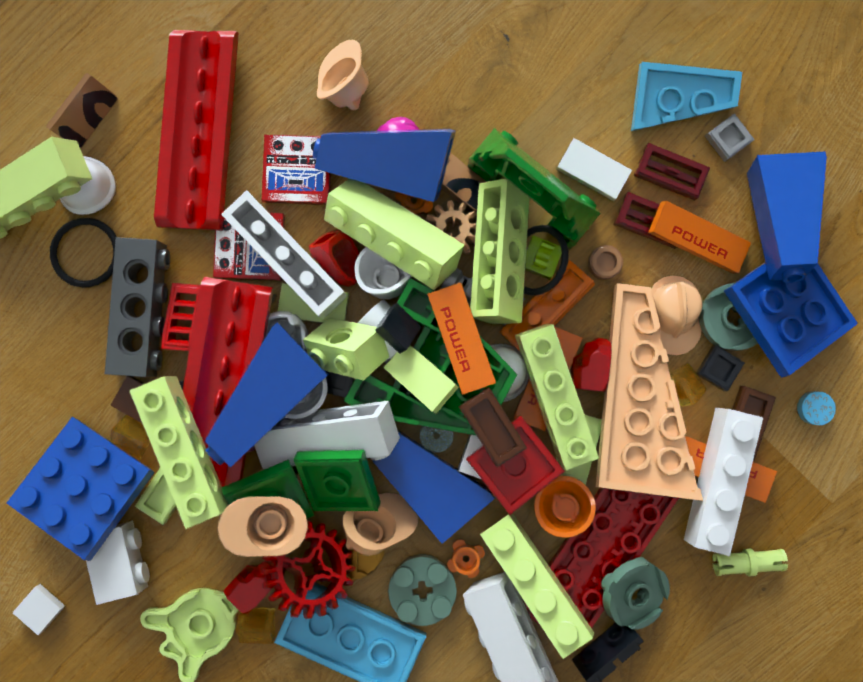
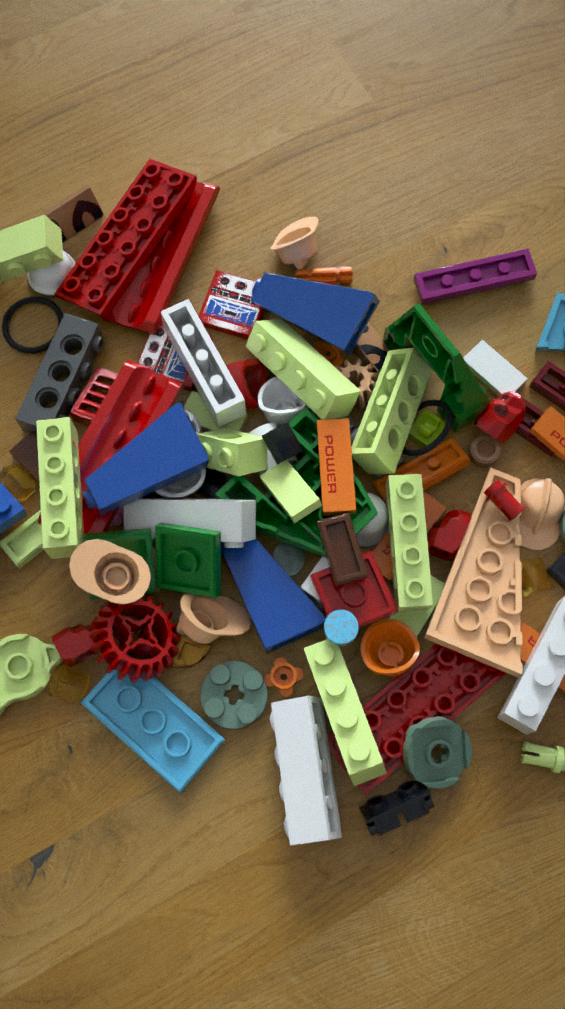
camera: 20 degrees right, 15 degrees down
(154, 124) = (127, 238): none -> red plate
(384, 108) = (326, 275): none -> orange axle
(513, 509) = (341, 627): none -> medium azure tile
(548, 64) = (475, 276): none -> magenta plate
(616, 224) = (502, 416): none -> red rock
(641, 320) = (503, 500): none -> red pin

